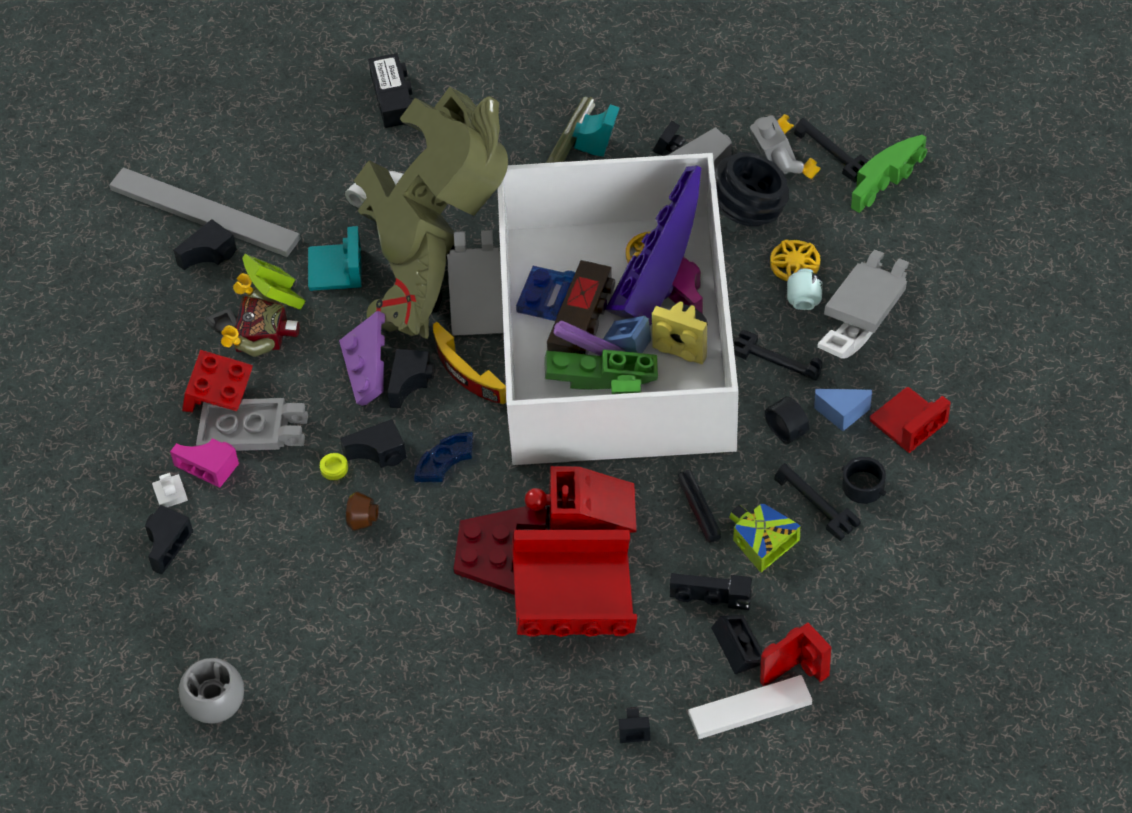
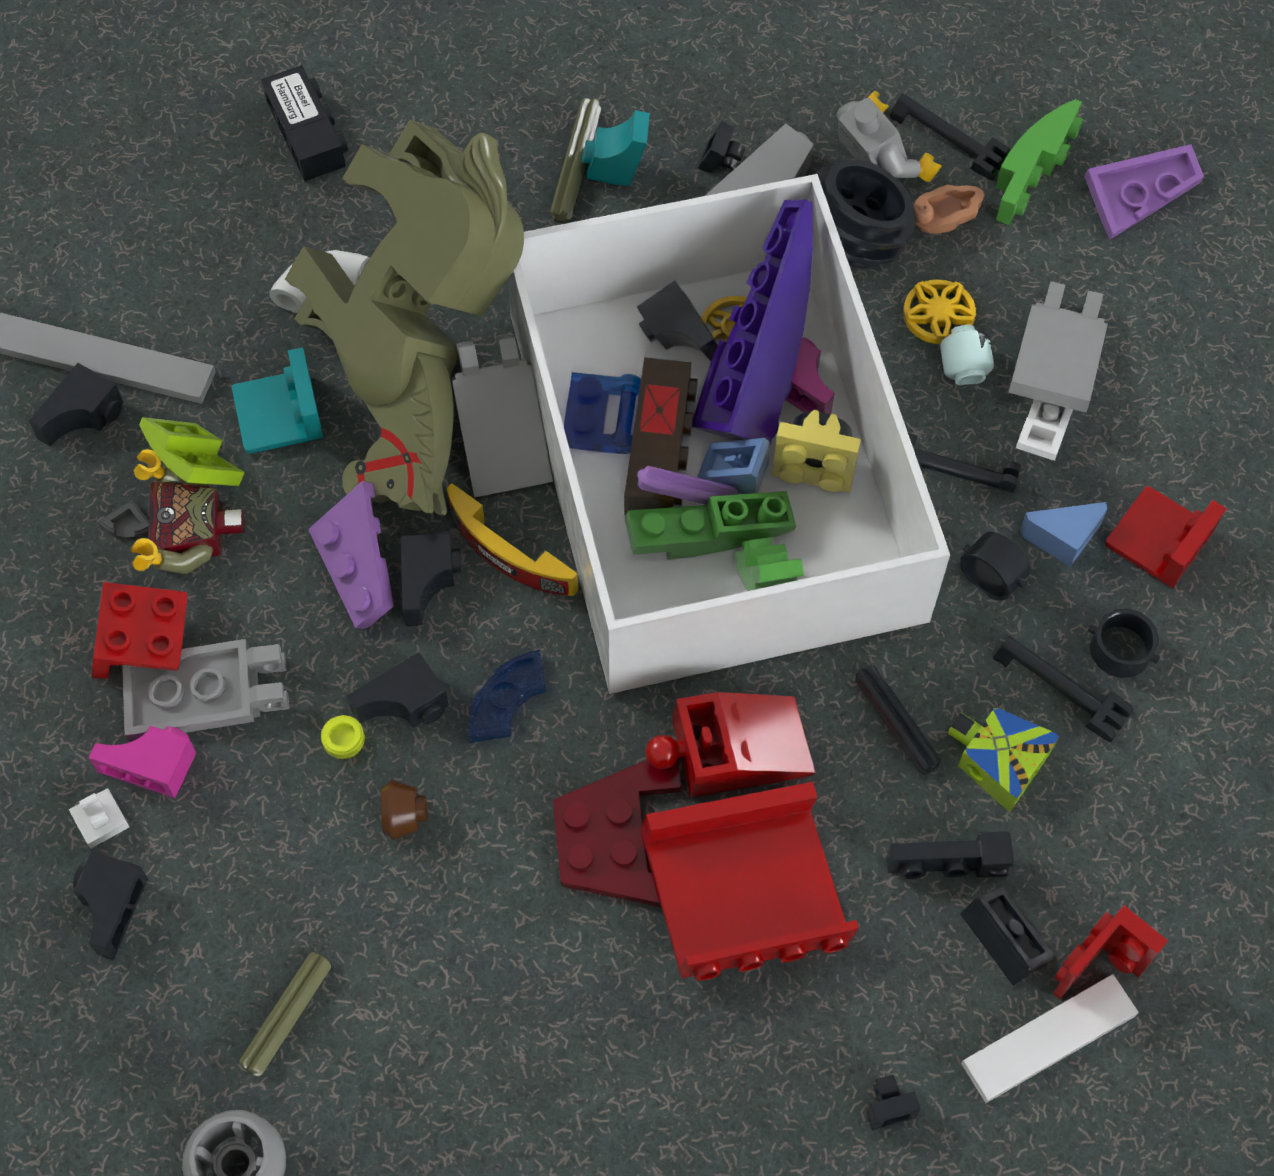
camera: 15 degrees left, 10 degrees up
(262, 619) = (285, 1014): none -> olive axle
(608, 240) = (675, 321): none -> black arch
(815, 195) = (947, 208): none -> nougat arm
(958, 197) = (1141, 185): none -> medium lavender wing

